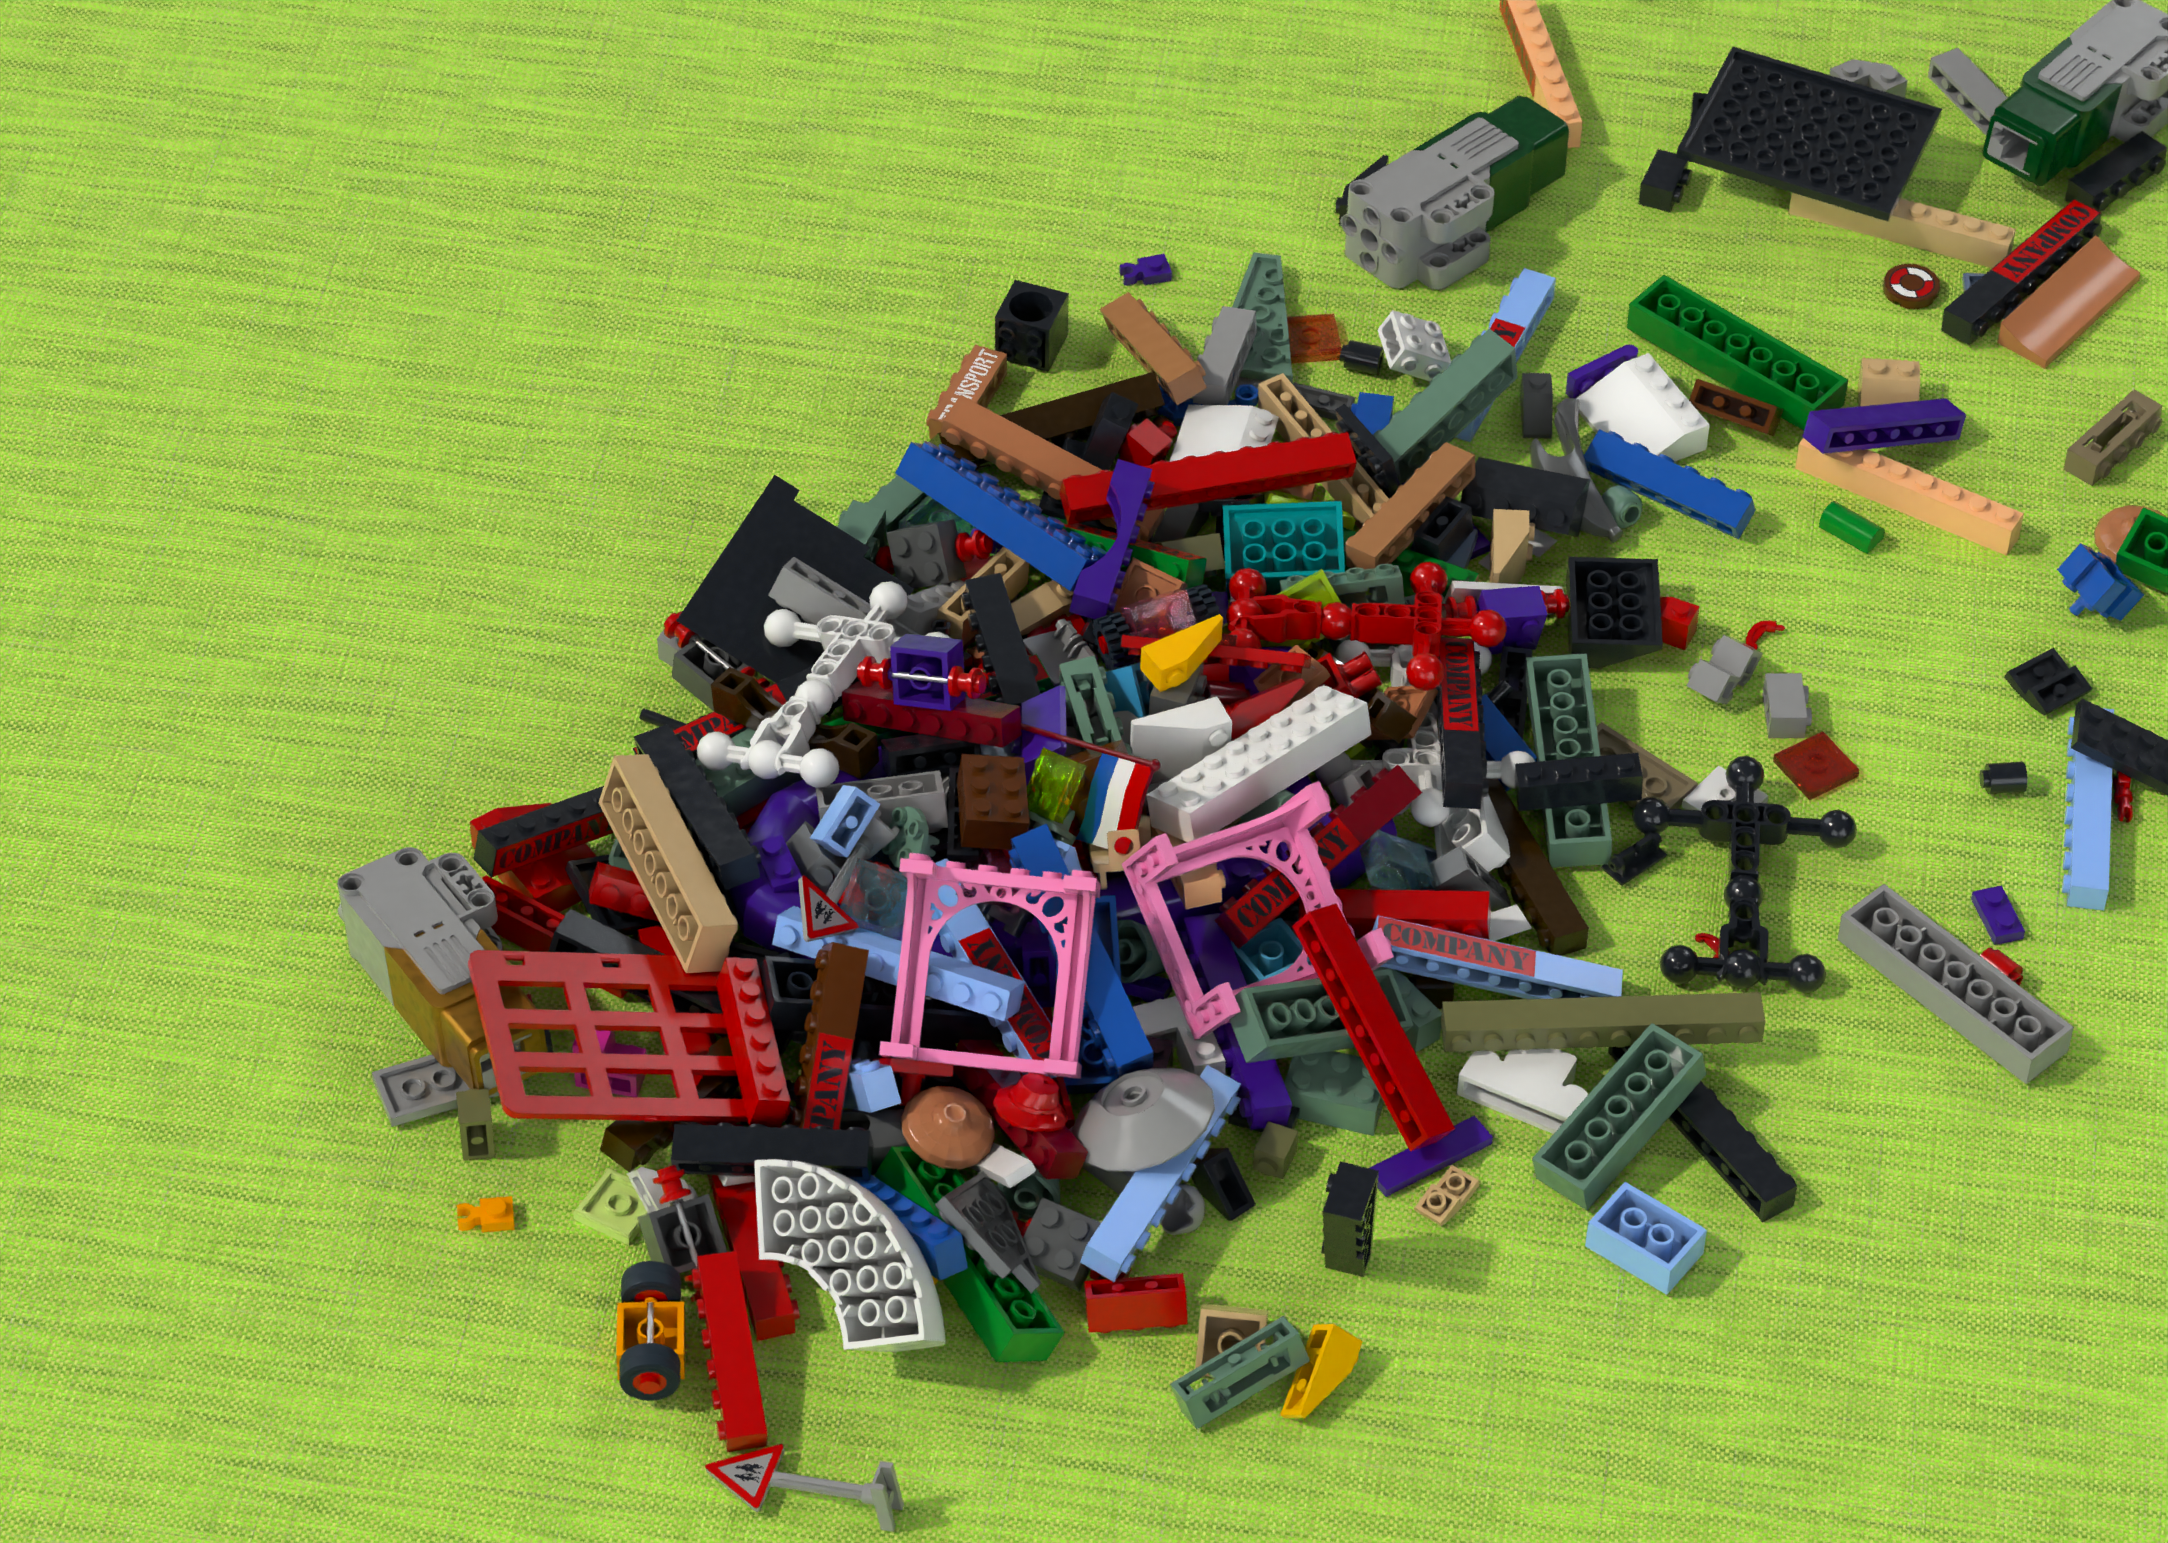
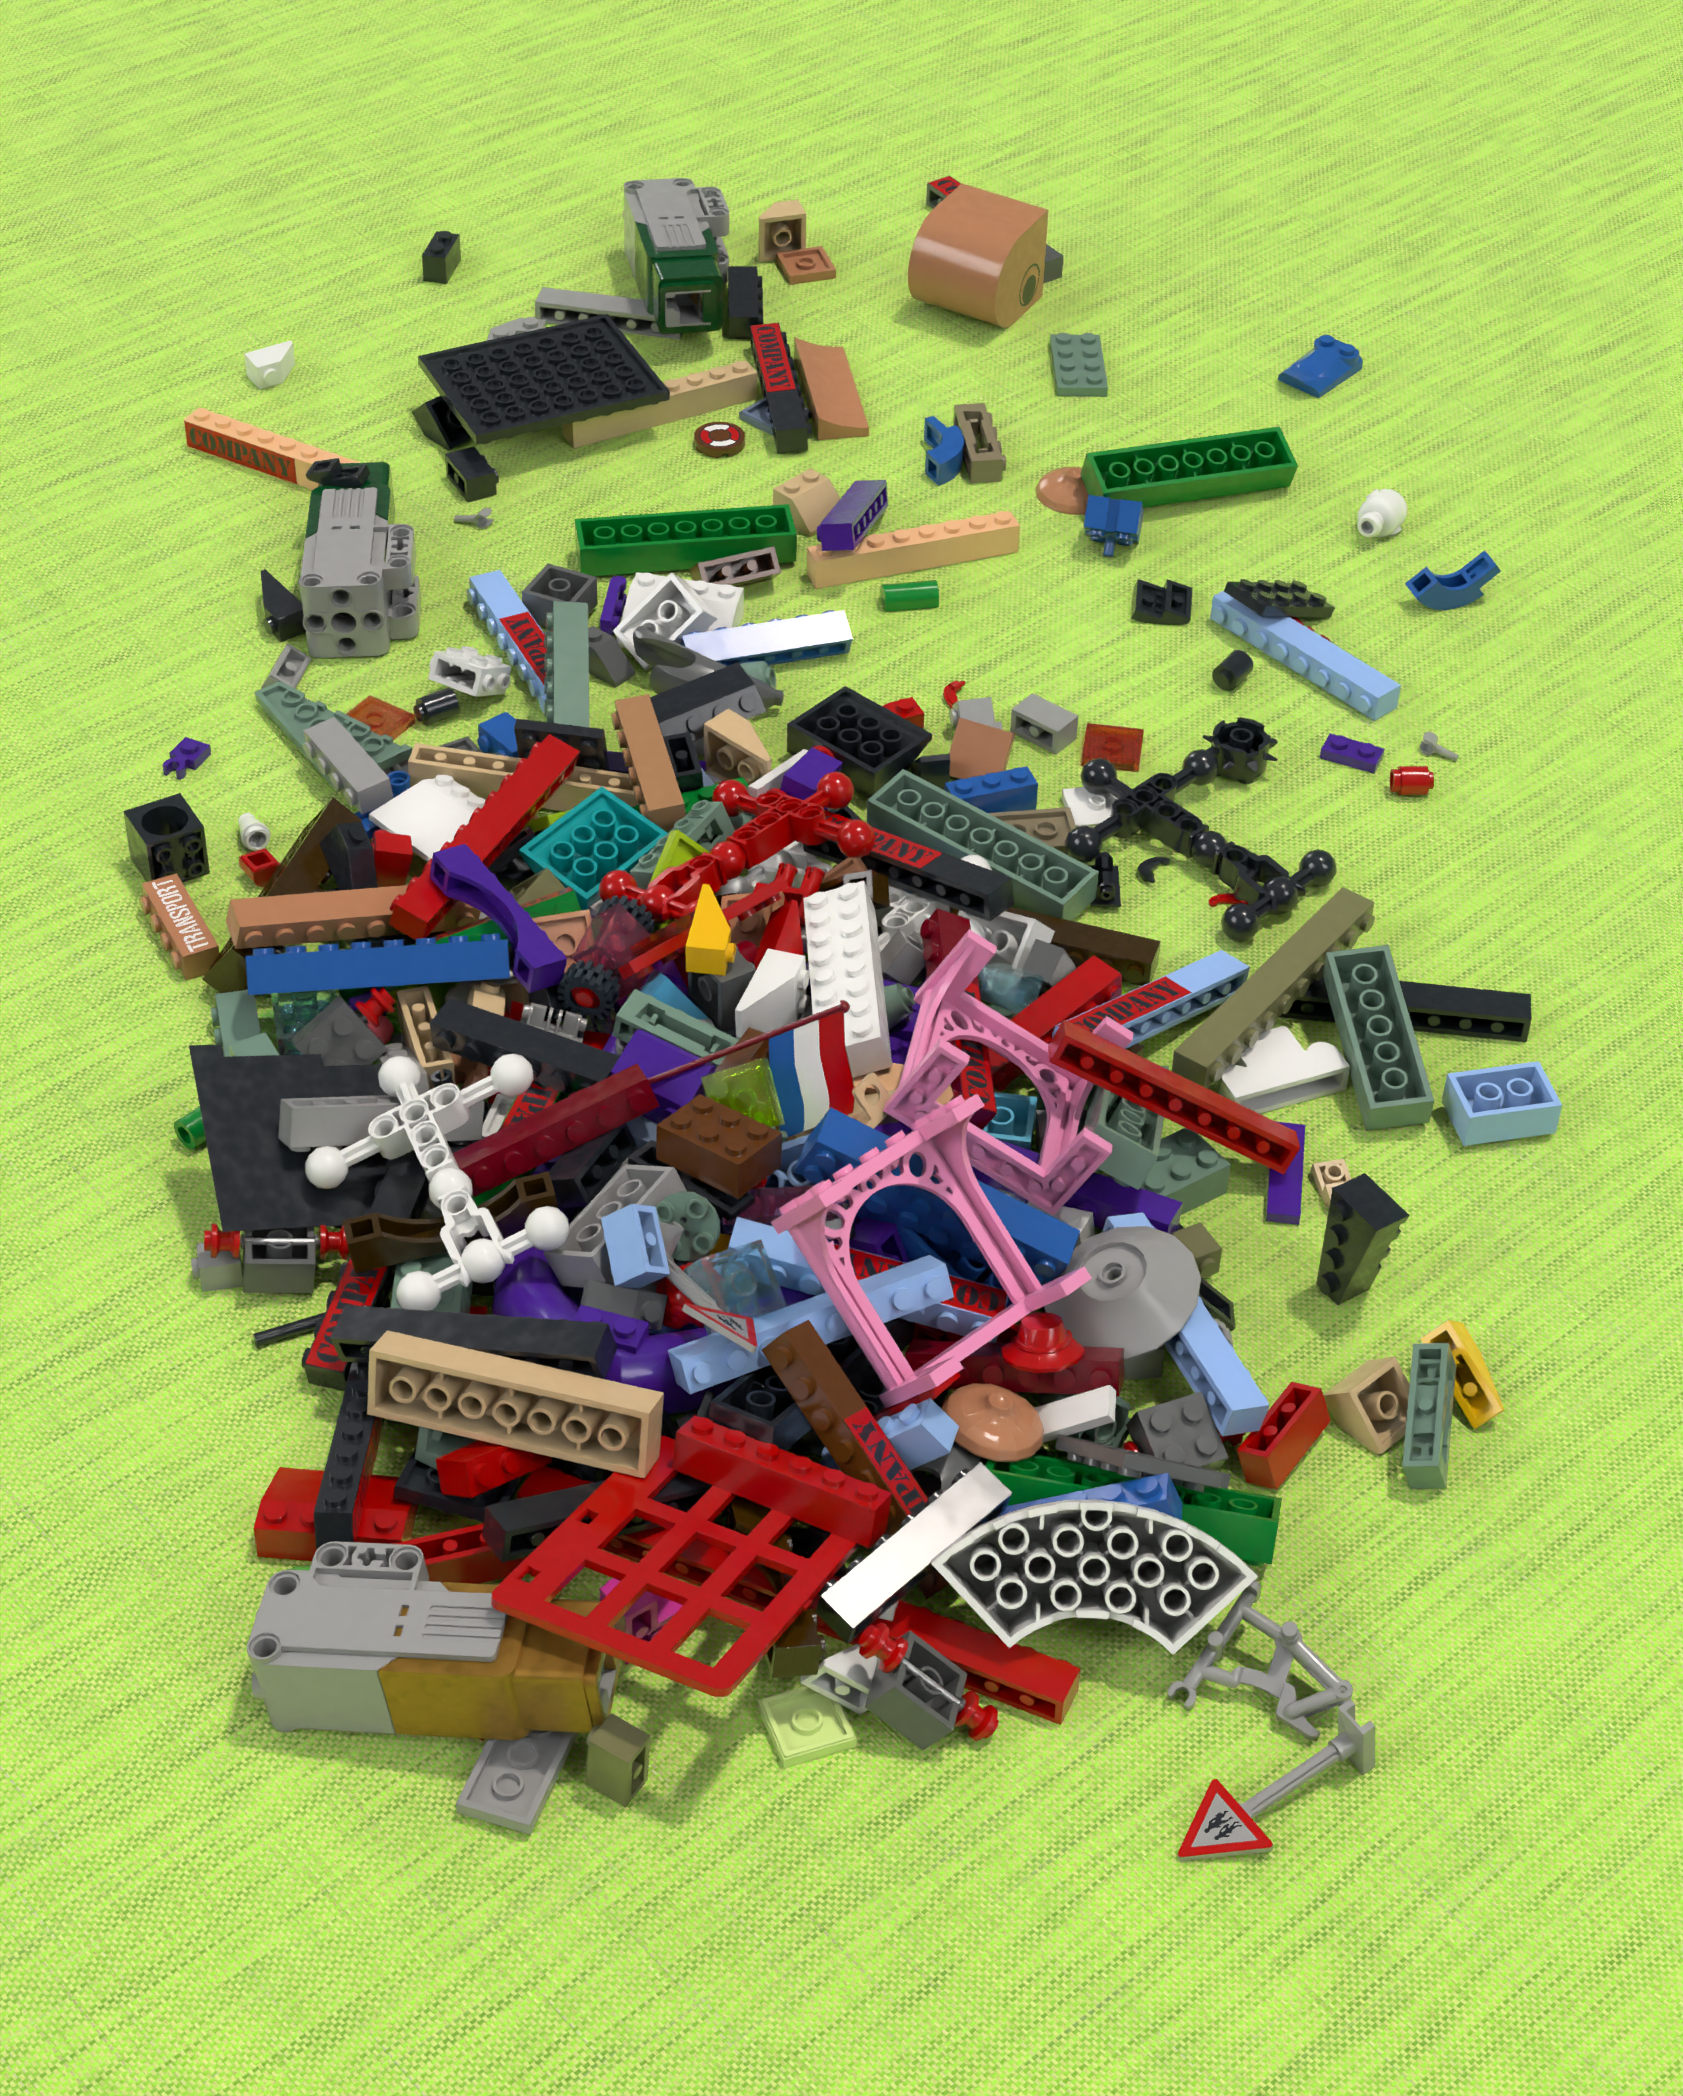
camera: 50 degrees left, 5 degrees down
(492, 1215) = (716, 1825): light orange plate -> none
(650, 1331) = (1006, 1790): brick -> none
(731, 1351) = (1085, 1741): red brick -> none
(924, 673) = (542, 1089): dark purple brick -> none
(929, 1415) = (1288, 1646): none -> light grey piece
(1075, 384) = (258, 866): none -> red brick
(1106, 363) = (253, 832): none -> white cone
(1154, 347) = (289, 791): medium nougat brick -> none
(1308, 251) = (288, 667): none -> light grey slope
(1508, 110) = (332, 473): none -> black slope
(1569, 333) = (558, 584): none -> dark grey brick
(1578, 781) = (1037, 841): black brick -> none
(1617, 405) = (669, 611): none -> white slope
(1622, 226) = (479, 519): none -> light grey hand
(1638, 678) = (933, 769): none -> black slope
(1652, 728) = (998, 791): none -> blue brick
(1686, 689) = (979, 749): none -> nougat tile
(1694, 873) = (1146, 867): none -> black piece
(1896, 840) = (1241, 749): none -> black brick
(1955, 983) = (1407, 805): light grey brick -> none
(2060, 432) = (946, 457): none -> blue arch
(2070, 957) = (1429, 746): none -> light grey hand

